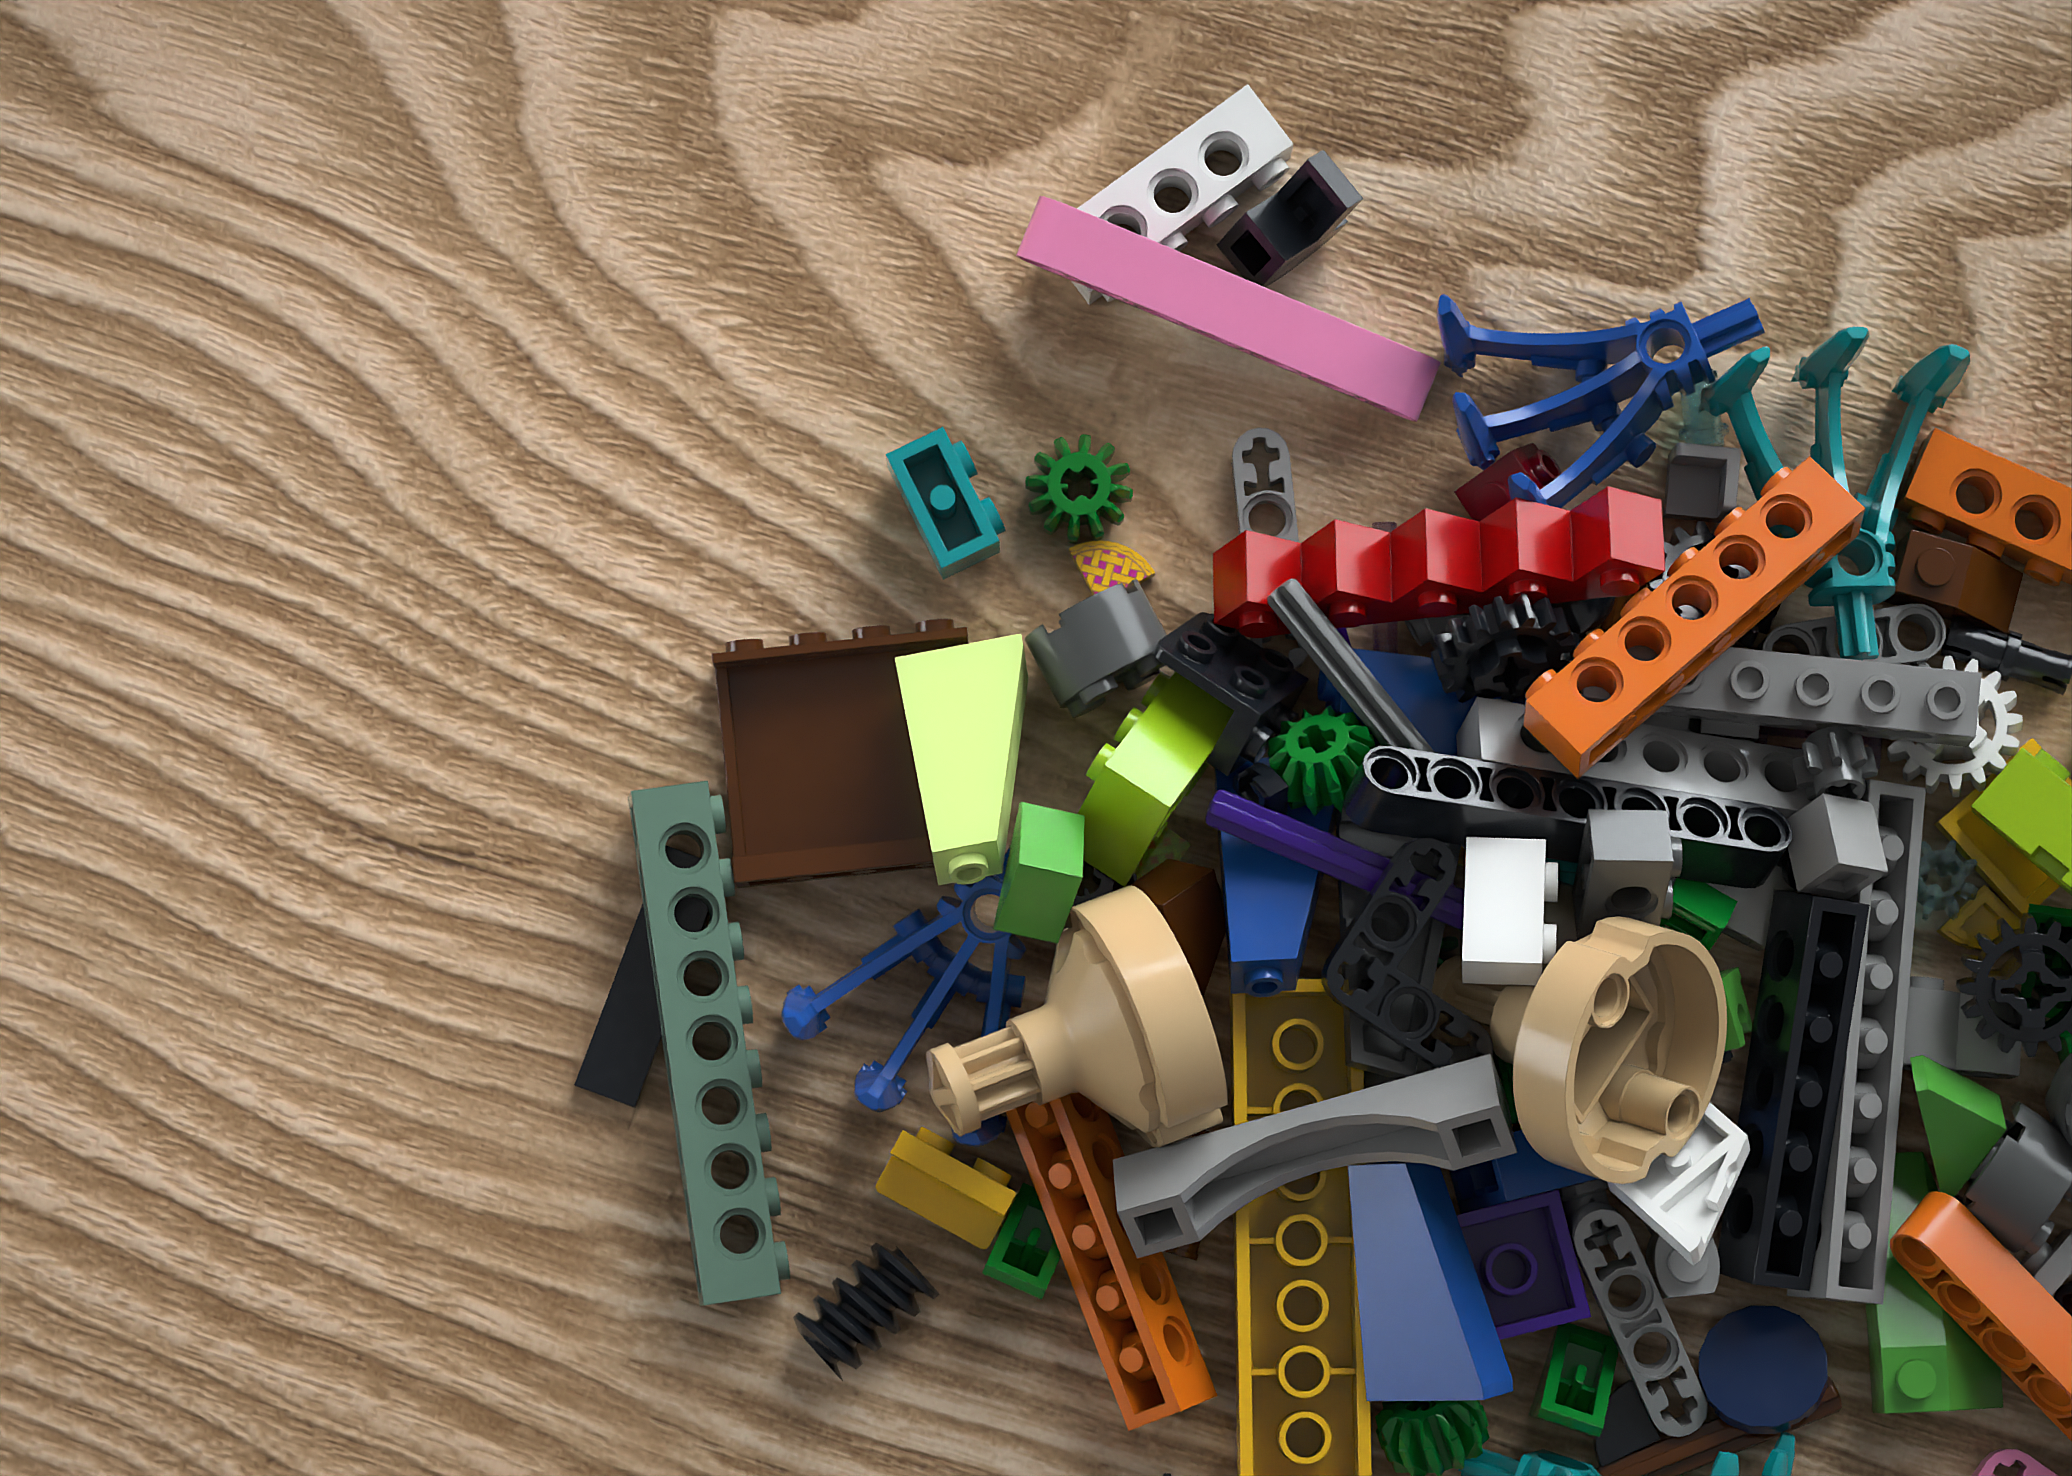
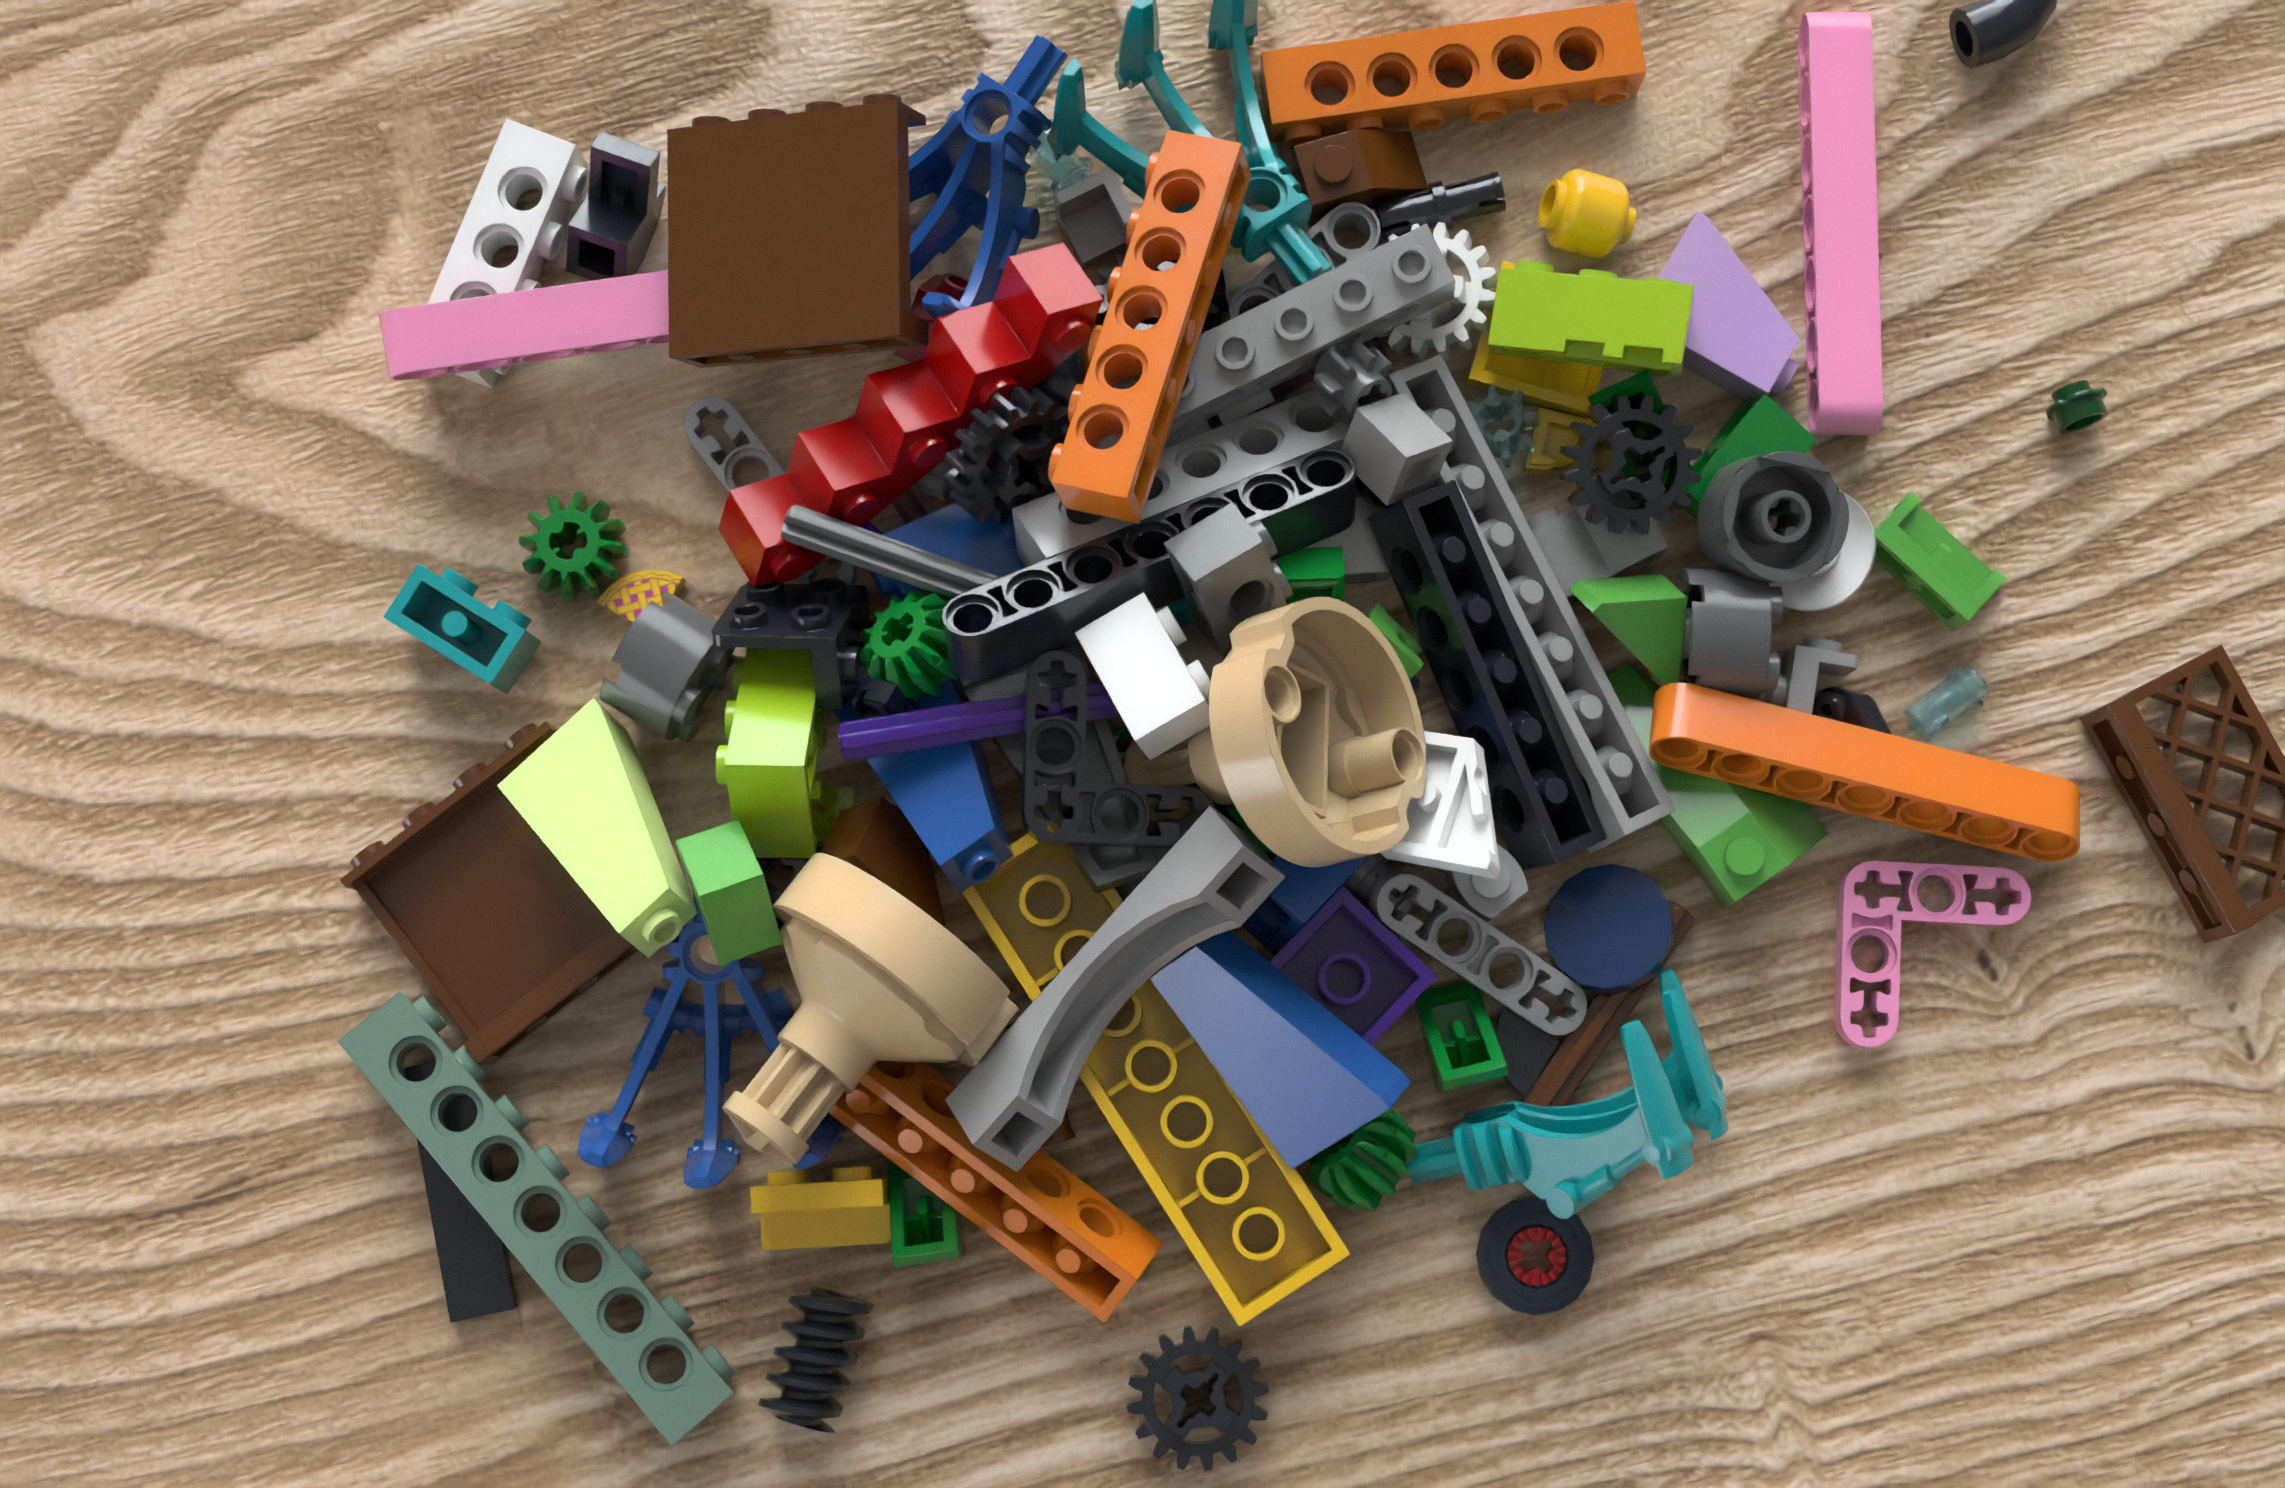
camera: 25 degrees left, 0 degrees up
(1434, 344) = (791, 234): none -> reddish brown panel

